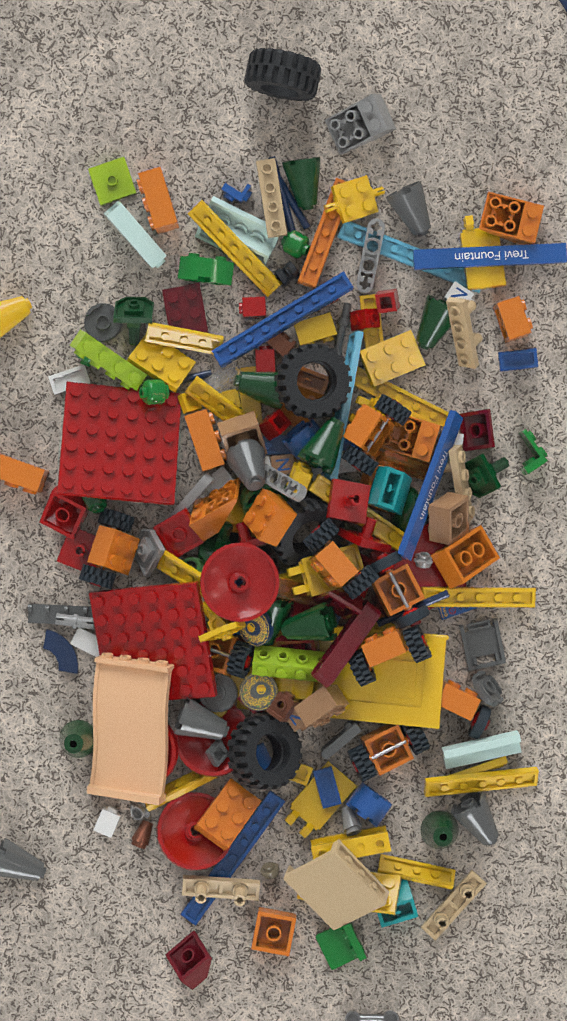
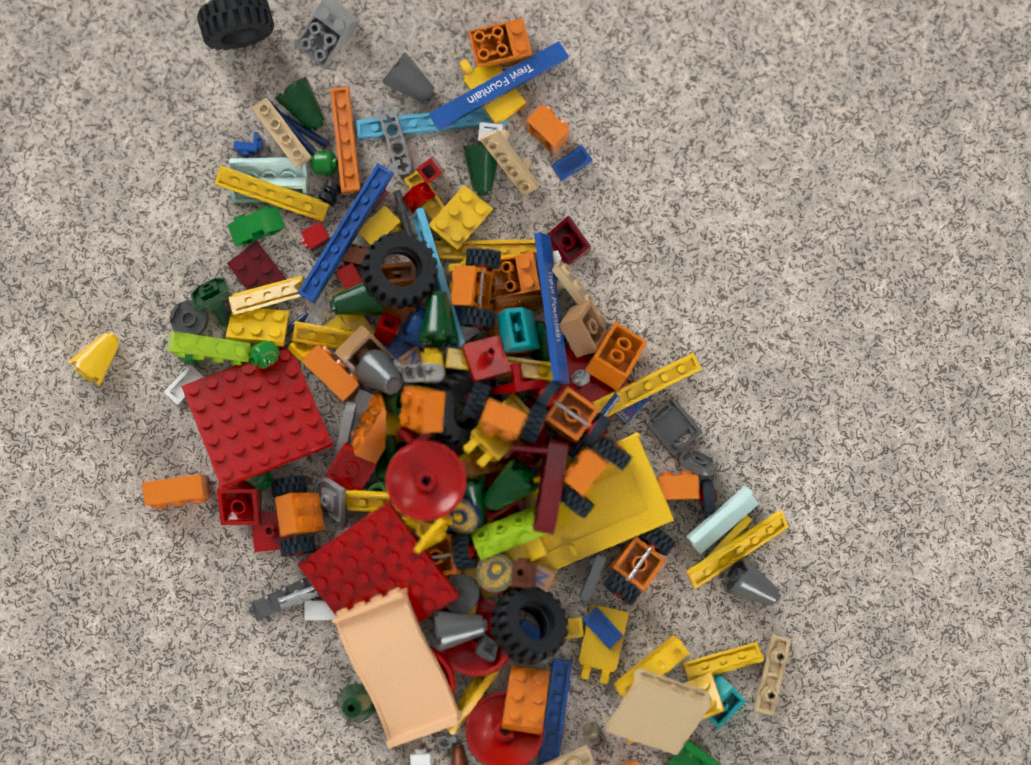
camera: 30 degrees left, 5 degrees down
(63, 651) = (301, 630): dark blue tile -> none
(112, 181) = (134, 192): lime plate -> none
(135, 235) = (178, 227): light aqua slope -> none
(157, 200) = (182, 187): orange brick -> none
(321, 706) = (558, 555): medium nougat brick -> none
(351, 823) = (640, 648): light grey cone -> none
(354, 199) = (355, 98): yellow plate -> none
(369, 804) = (648, 622): blue brick -> none
(436, 824) = (716, 612): dark green cone -> none
(483, 474) = (594, 276): dark green piece -> none
(538, 452) = (632, 232): green bracket -> none

